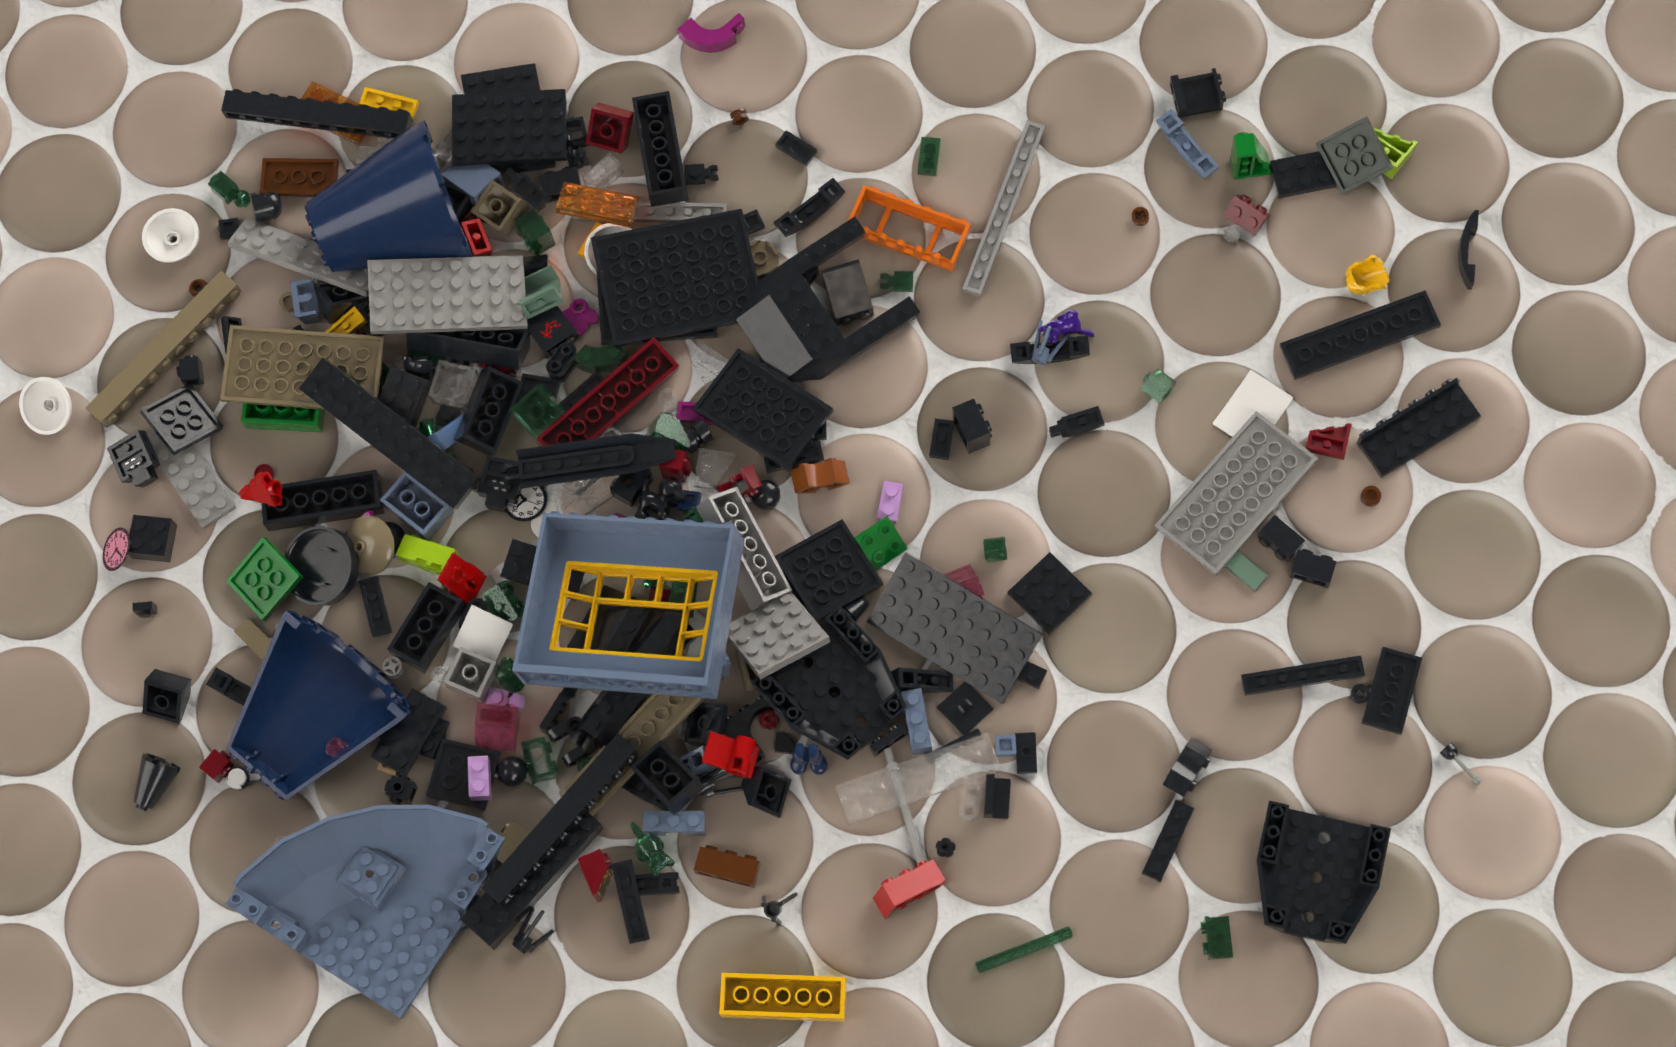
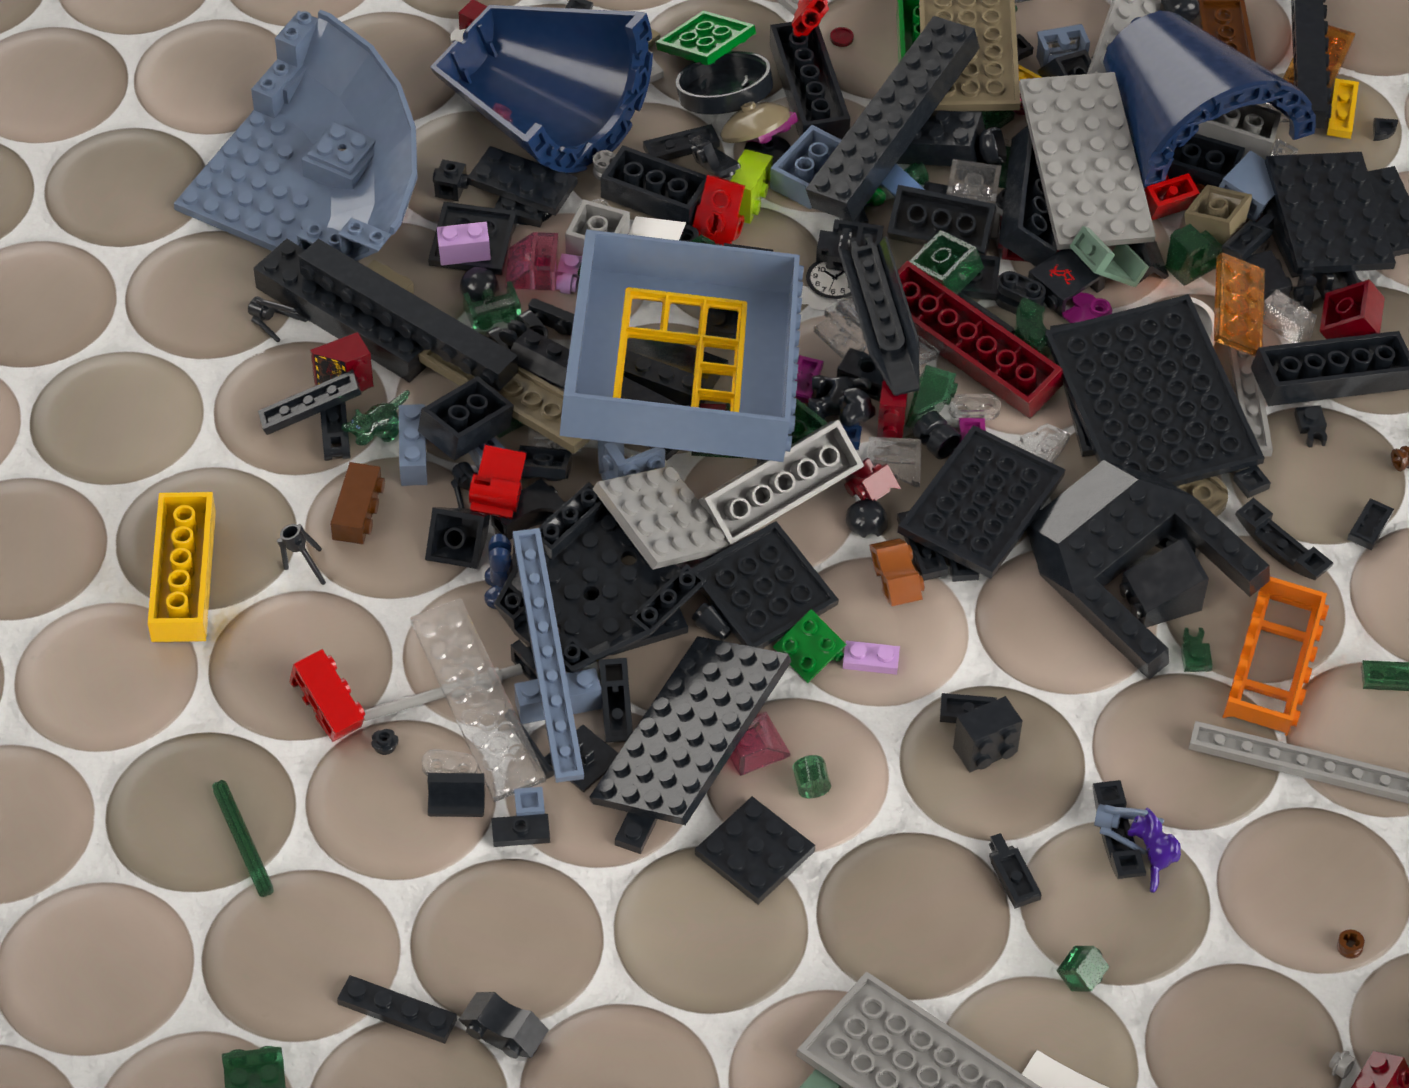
camera: 75 degrees right, 20 degrees down
(410, 77) = (1383, 128): none -> black tile
(412, 576) = (713, 158): none -> black bracket
(896, 721) = (548, 656): none -> sand blue plate

